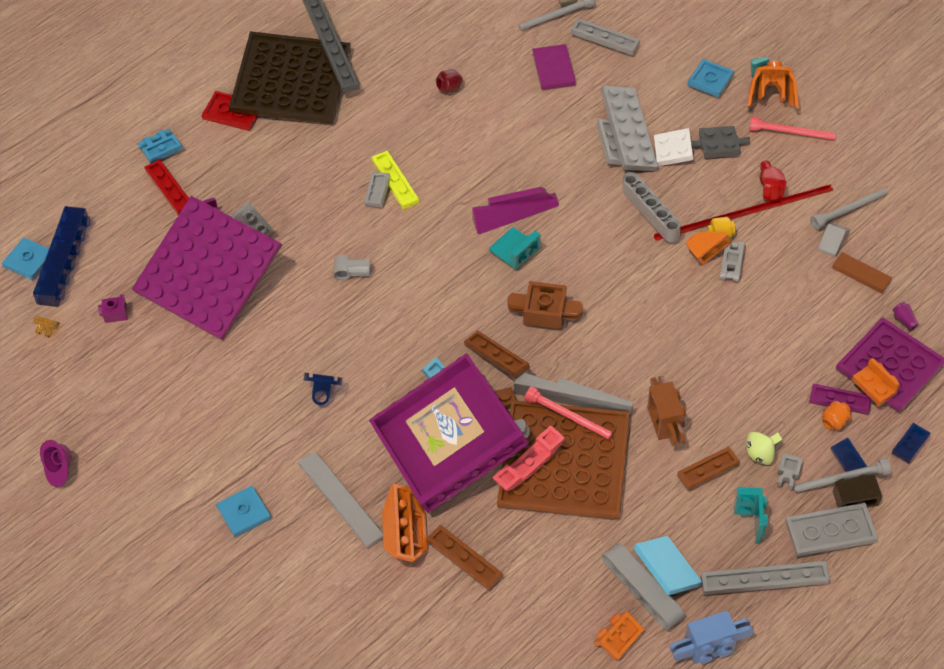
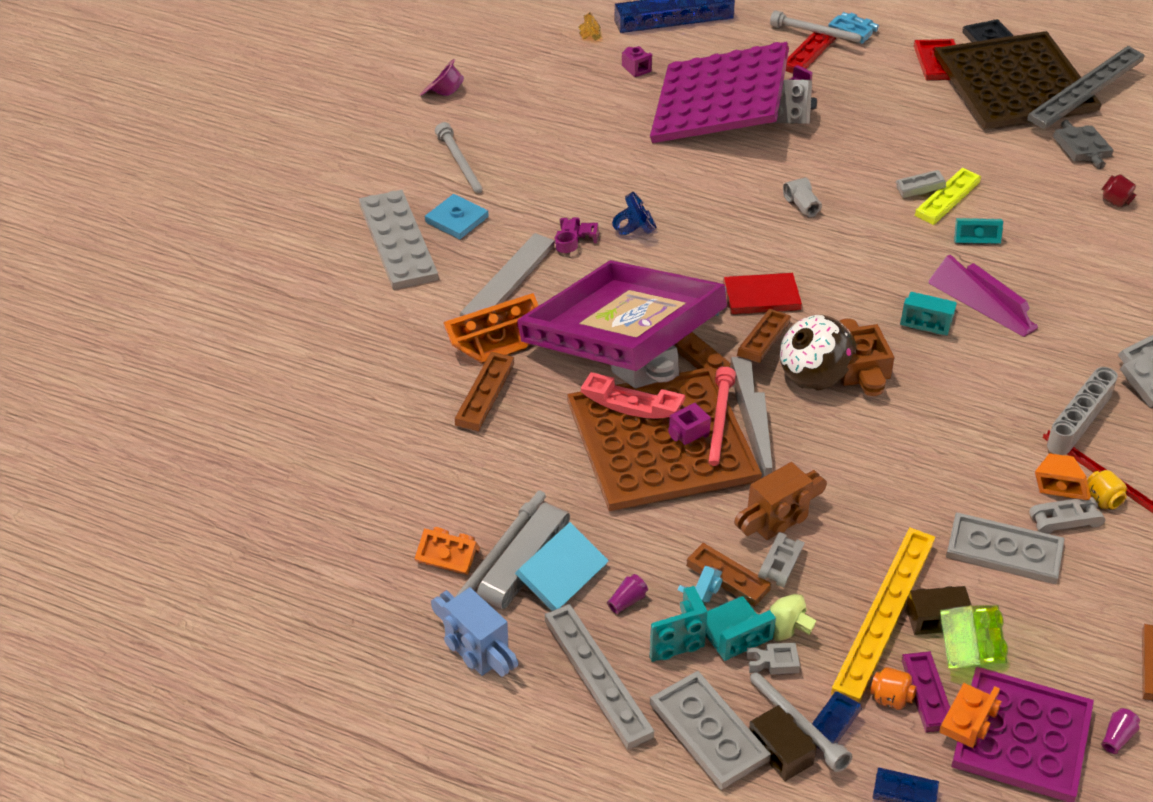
camera: 65 degrees right, 10 degrees down
(121, 188) = (779, 19): none -> light grey piece
(129, 484) = (445, 133): none -> light grey piece
(222, 67) = (986, 31): none -> black tile
(248, 564) = (398, 239): none -> light grey plate
(312, 430) = (567, 239): none -> magenta piece
(383, 75) = (1083, 143): none -> dark grey plate
(442, 337) = (762, 293): none -> red tile
(447, 179) = (978, 230): none -> teal tile
(551, 321) = (817, 352): none -> cylinder
(574, 435) = (689, 424): none -> magenta brick
(601, 572) = (524, 516): none -> light grey bar
(702, 533) = (628, 593): none -> magenta cone
(711, 431) = (782, 559): none -> light grey plate
(719, 485) = (708, 583): none -> medium azure bracket
(743, 306) = (1005, 548): none -> light grey tile
(758, 476) = (738, 627): none -> teal bracket
(775, 395) = (883, 615): none -> yellow plate
(784, 364) = (925, 607): none -> dark brown brick
(820, 354) = (974, 636): none -> clear neon green slope

